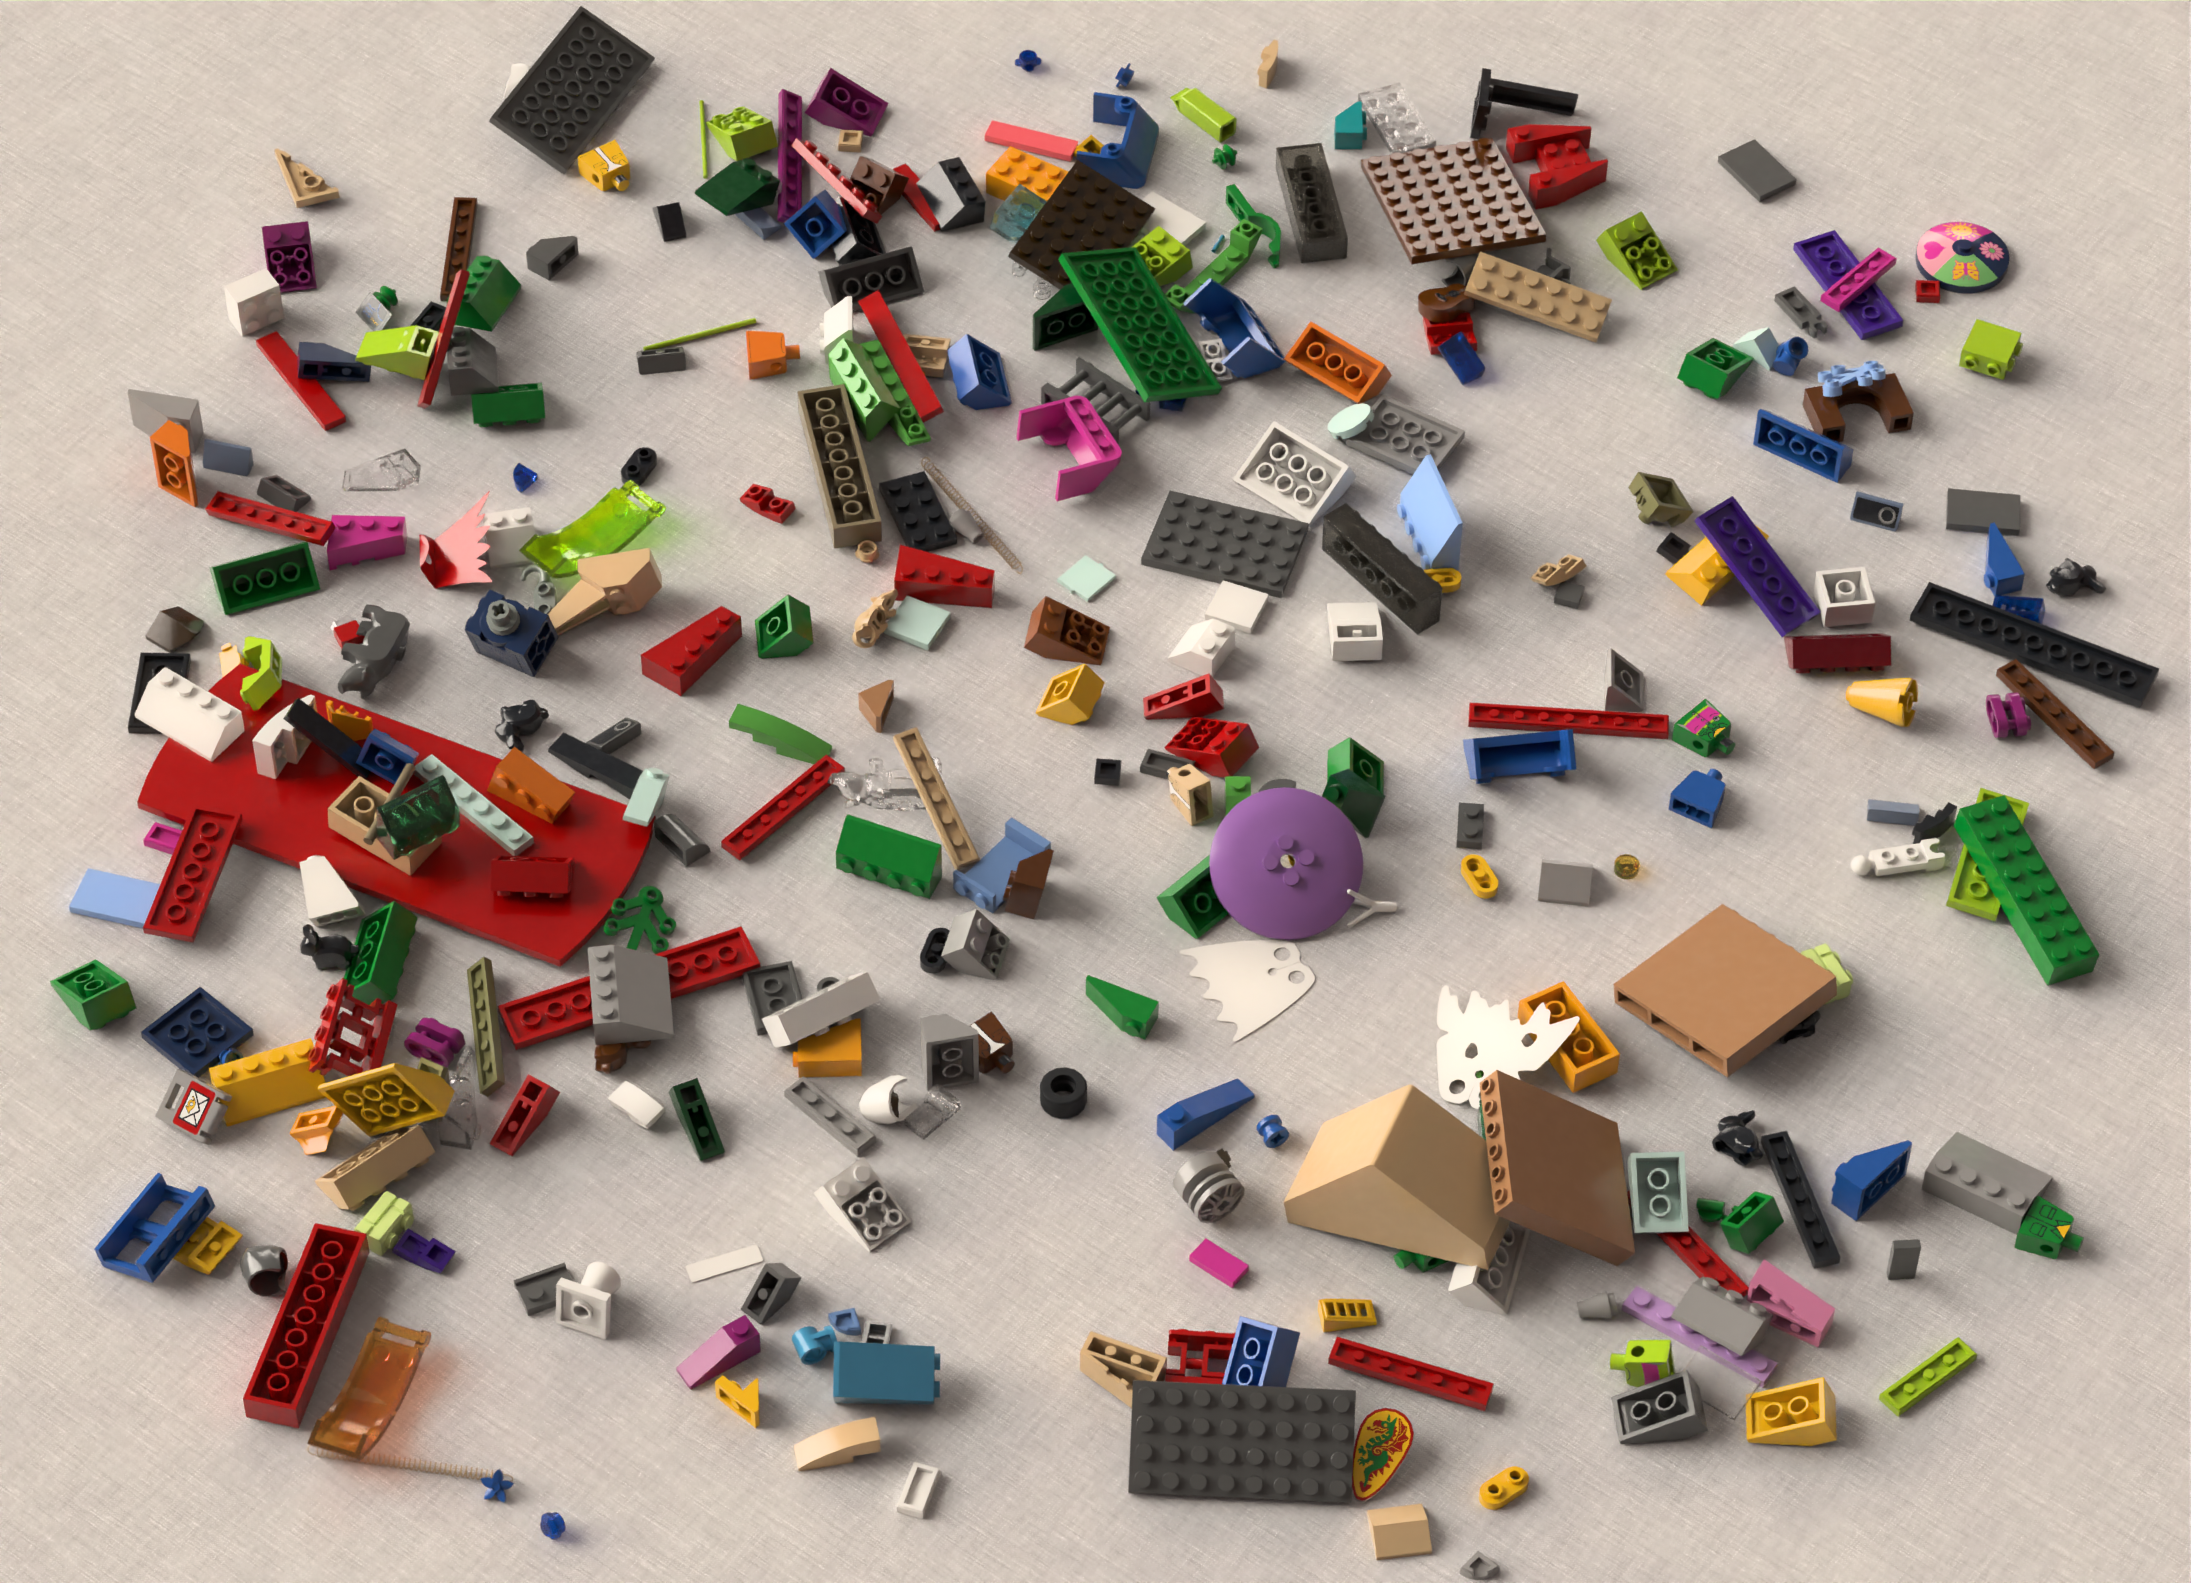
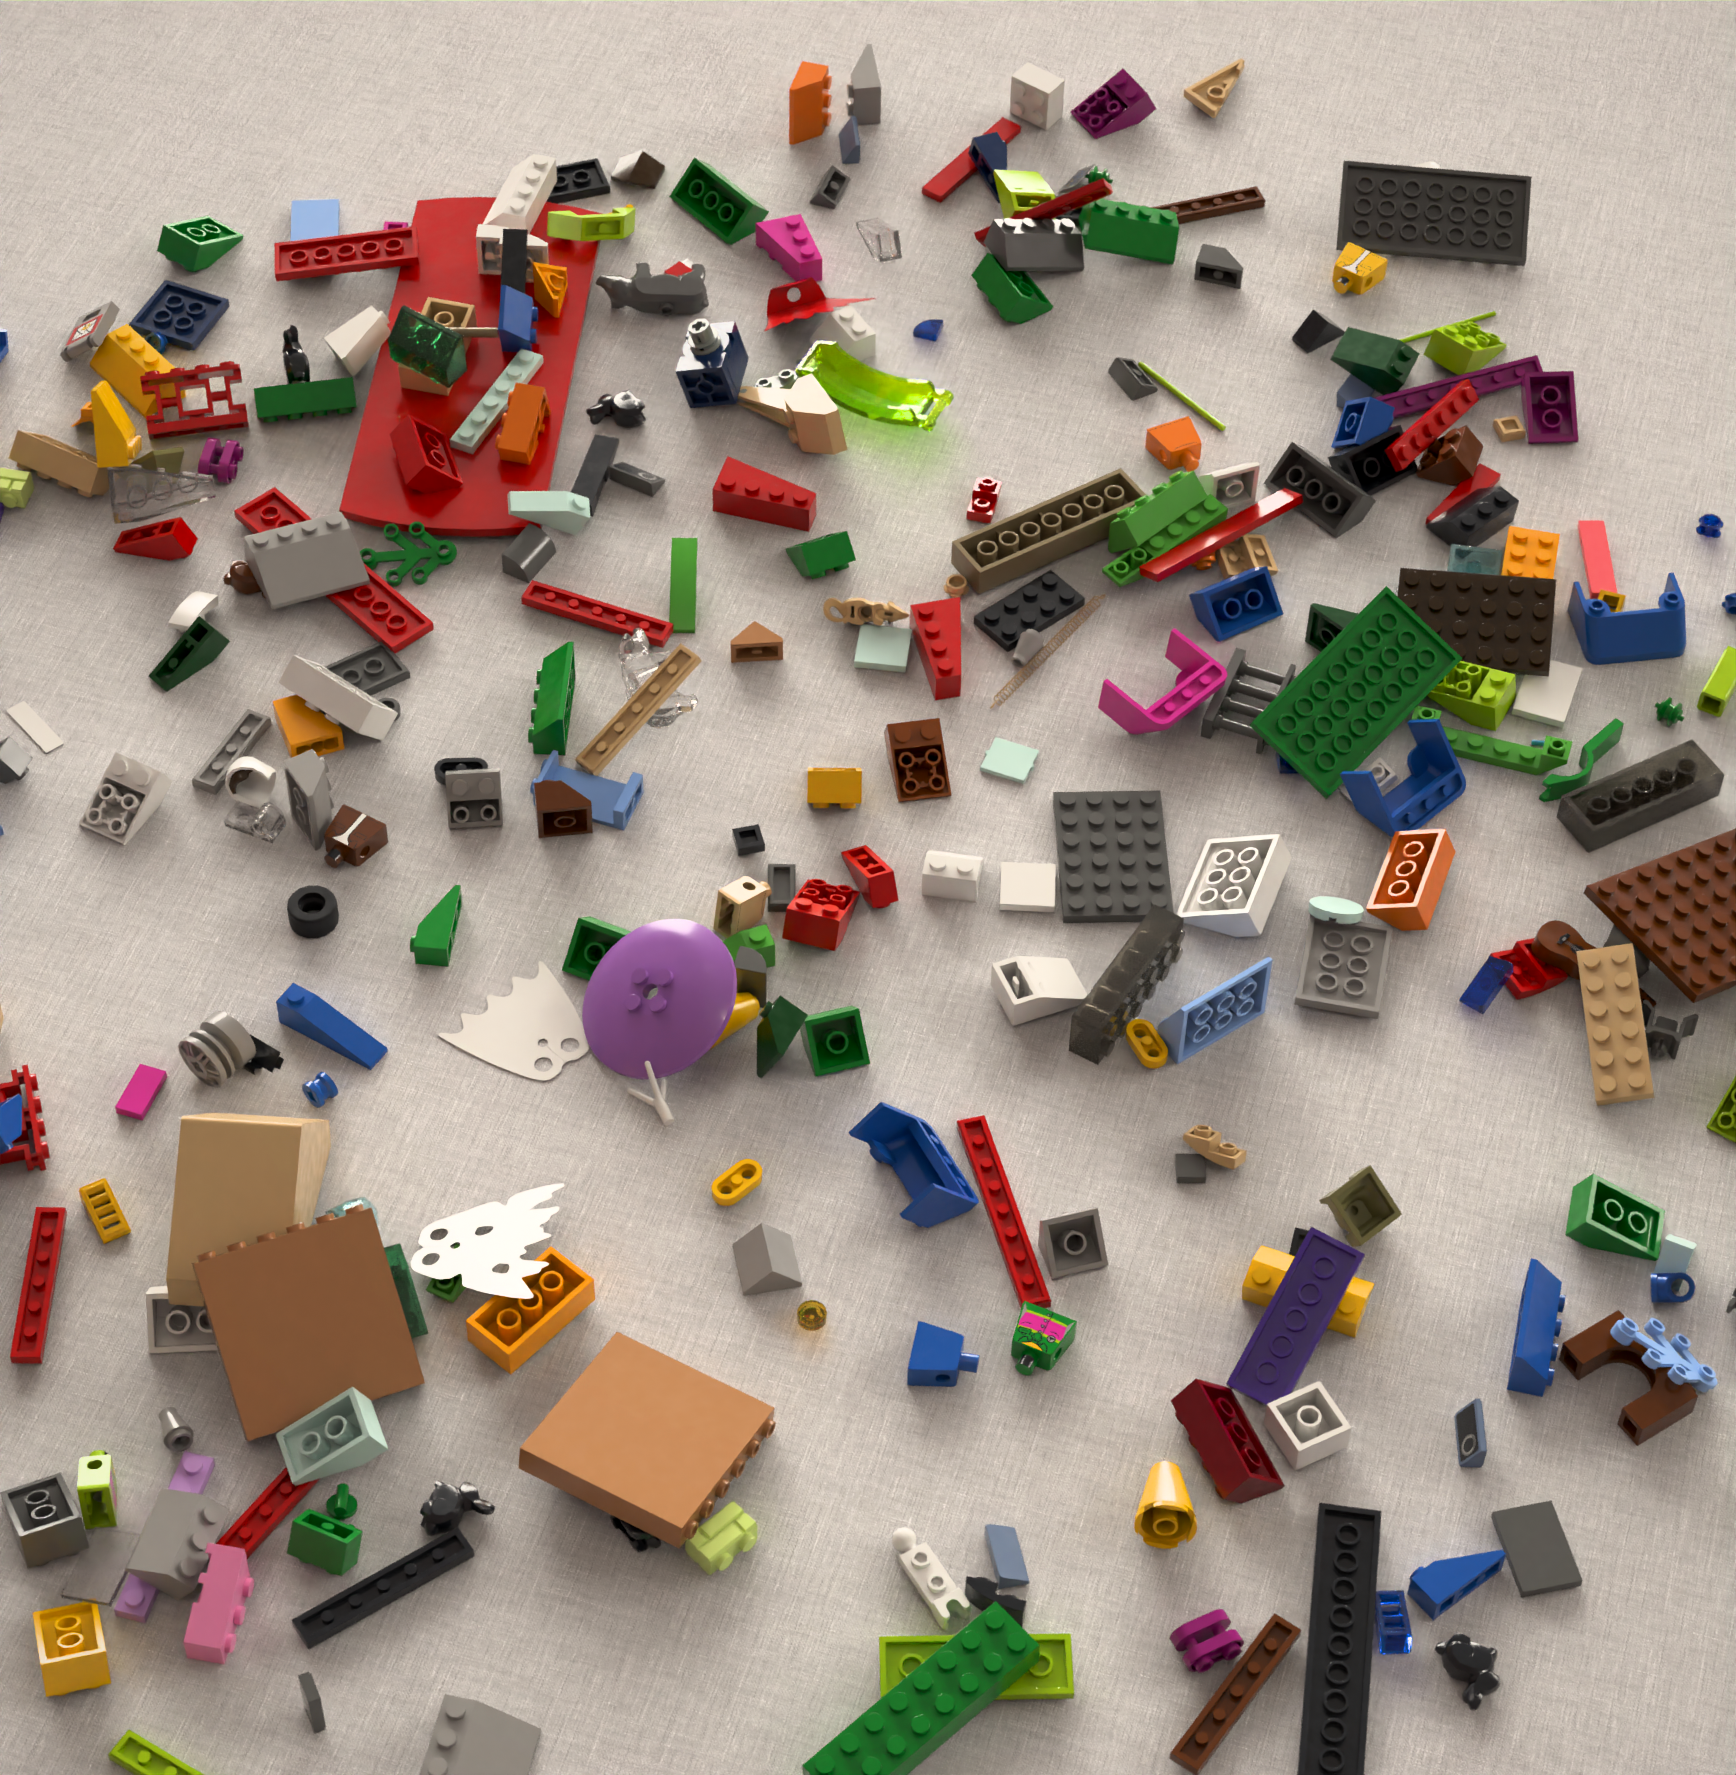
camera: 70 degrees right, 0 degrees up
(270, 518) = (780, 181): red plate -> none
(485, 1027) = (241, 492): olive plate -> none
(639, 465) = (984, 401): black plate -> none
(1470, 825) = (810, 1159): dark grey plate -> none
(1869, 1177) = (415, 1641): blue slope -> none

